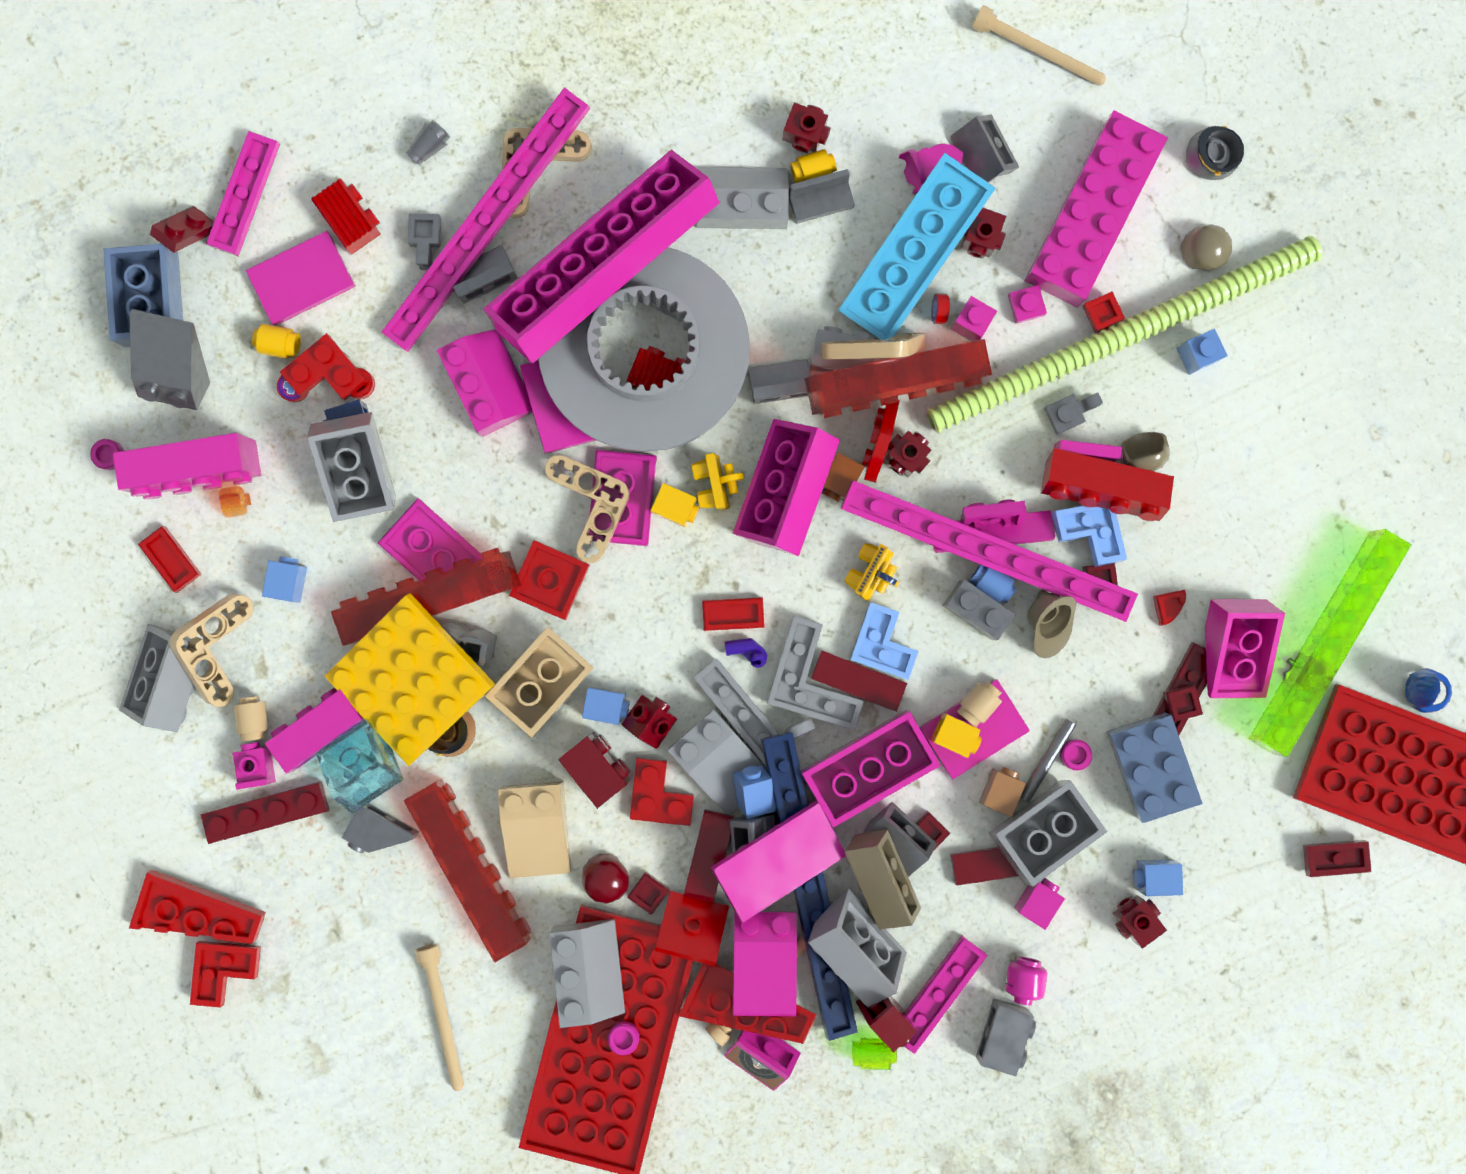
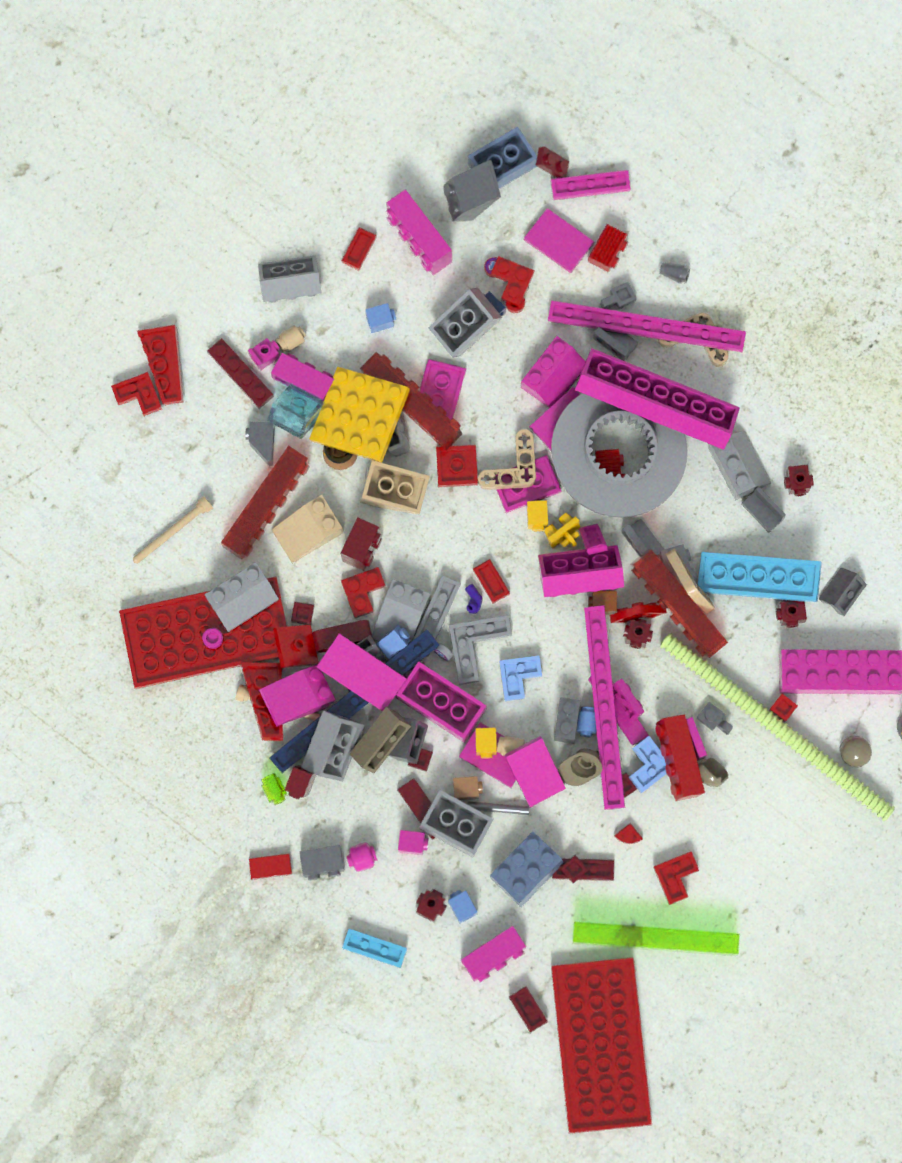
camera: 65 degrees right, 10 degrees down
(102, 453) = (401, 183): dark pink tile -> none
(200, 650) = (318, 290): tan beam -> none
(234, 501) = (410, 267): clear orange piece -> none
(276, 341) = (515, 245): yellow brick -> none
(605, 706) = (400, 533): medium blue brick -> none
(605, 878) = (298, 584): dark red hair -> none
(650, 720) = (404, 562): dark red brick -> none
(748, 447) = (593, 539): none -> dark pink plate
(763, 1058) = (240, 726): dark pink panel -> none
(813, 165) = (778, 495): yellow brick -> none
(859, 681) = (489, 673): dark red tile -> none
(878, 573) = (557, 650): yellow hips -> none
(921, 163) = (814, 554): dark pink piece -> none
(940, 308) = (734, 611): red tile -> none
(943, 989) = (327, 812): dark pink tile -> none
(973, 319) = (737, 633): dark pink brick -> none
(974, 1108) = (270, 866): none -> red tile
(1027, 304) = (765, 661): dark pink plate -> none
(1029, 690) = (535, 771): none -> dark pink tile
(1076, 754) = (510, 823): dark pink tile -> none
(1155, 1023) = (374, 948): none -> medium azure plate
(1201, 351) = (790, 776): medium blue brick -> none
(1241, 646) = (624, 886): dark pink slope -> none
(1243, 868) = (494, 954): none -> dark pink brick
(1249, 575) = (670, 875): none -> red plate
(1423, 689) = (657, 1003): blue piece -> none

